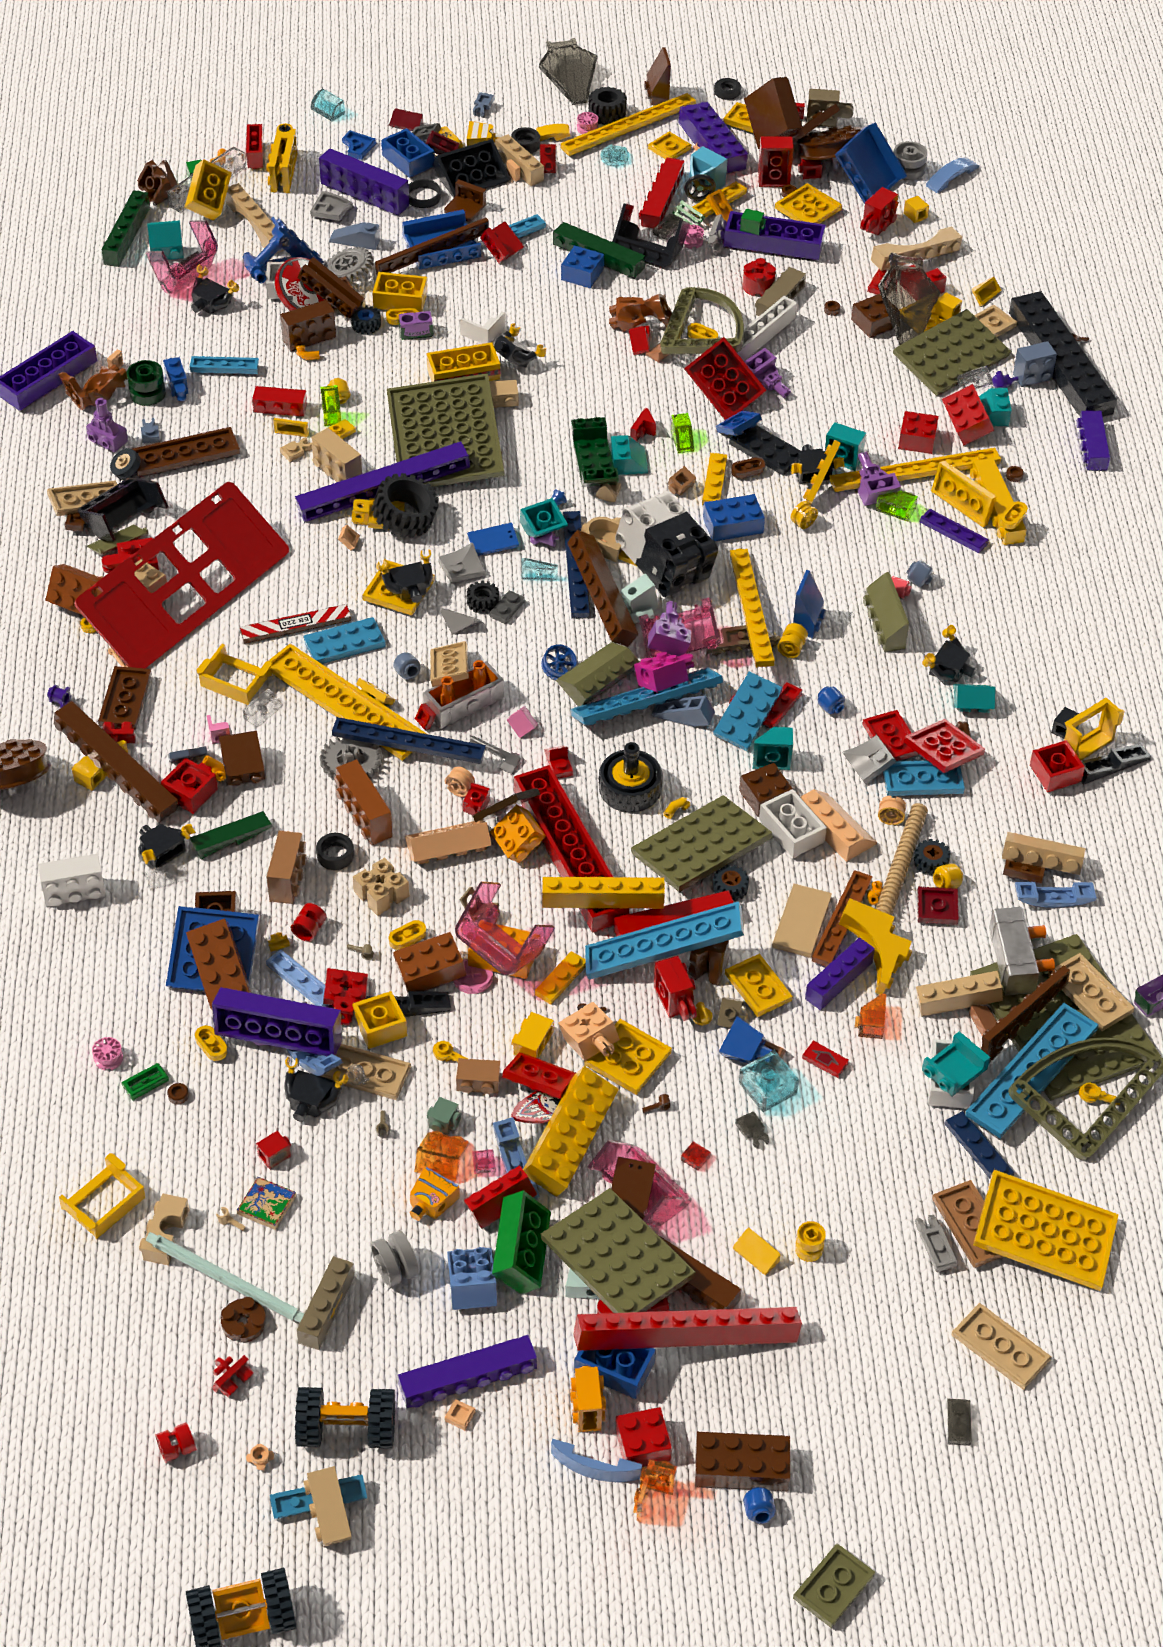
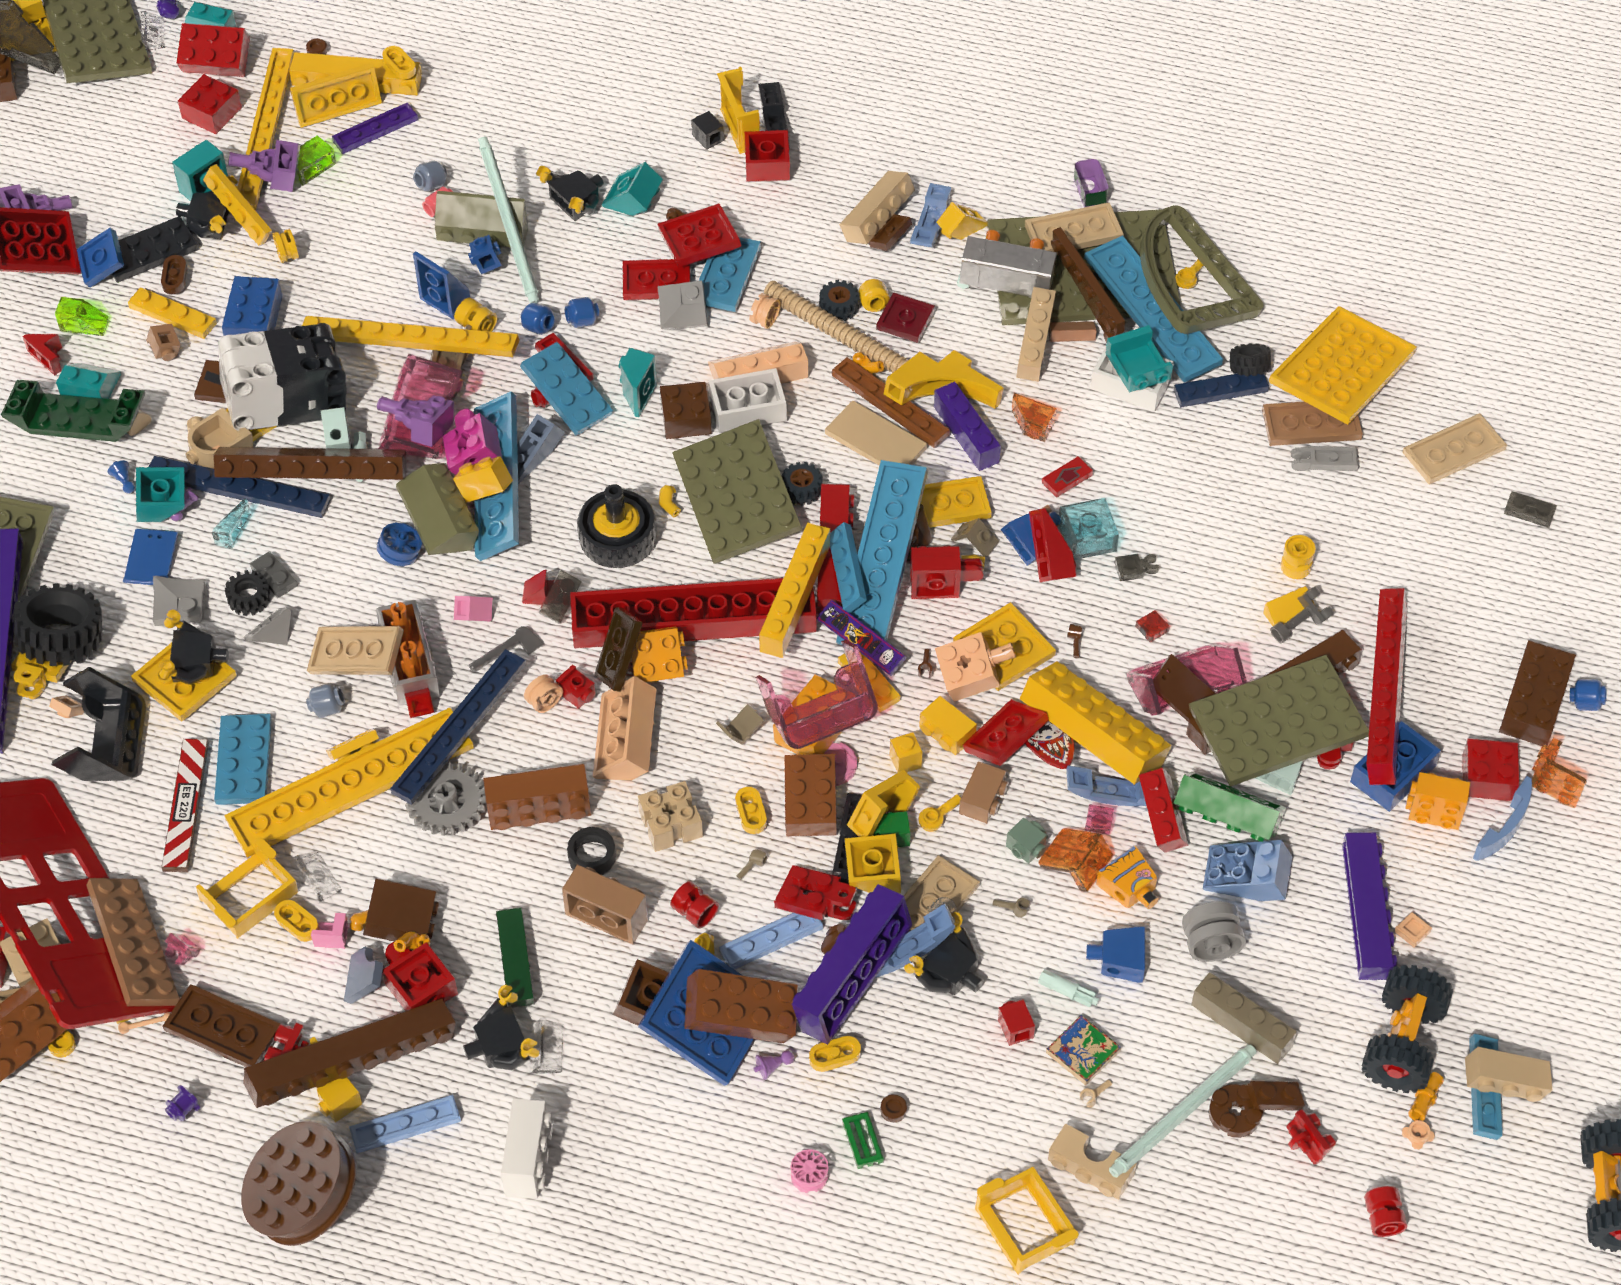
camera: 70 degrees left, 5 degrees up
(82, 817) = (404, 1124): none -> light blue tile
(170, 628) = (132, 942): none -> medium nougat plate
(179, 657) = (183, 945): none -> clear pink tile
(189, 1005) = (768, 1064): none -> medium lavender piece
(221, 708) = (297, 922): none -> yellow plate
(261, 1342) = (1275, 1095): none -> reddish brown plate
(294, 1453) = (1426, 1097): none -> light orange pin
(317, 1179) = (1067, 988): none -> light aqua piece
(337, 572) = (117, 731): none -> black windscreen
(360, 1205) = (1120, 953): none -> blue torso
(421, 1027) = (897, 824): none -> green brick
(433, 1003) = (890, 795): none -> yellow panel
(494, 1015) = (905, 753): none -> yellow brick
(559, 763) = (558, 598): none -> clear smoke plate
(589, 956) = (868, 642): none -> tile
(628, 682) = (482, 479): none -> yellow brick
(636, 924) = (847, 567): none -> dark azure plate
(727, 1057) = (1052, 552): none -> red slope
(728, 1249) = (1281, 631): none -> dark grey bar
(812, 676) = (537, 318): none -> blue head
(856, 626) = (485, 254): none -> blue brick
(884, 621) = (508, 220): none -> light aqua piece
(1015, 1157) = (1250, 359): none -> black tyre
(1063, 915) = (960, 221): none -> yellow slope

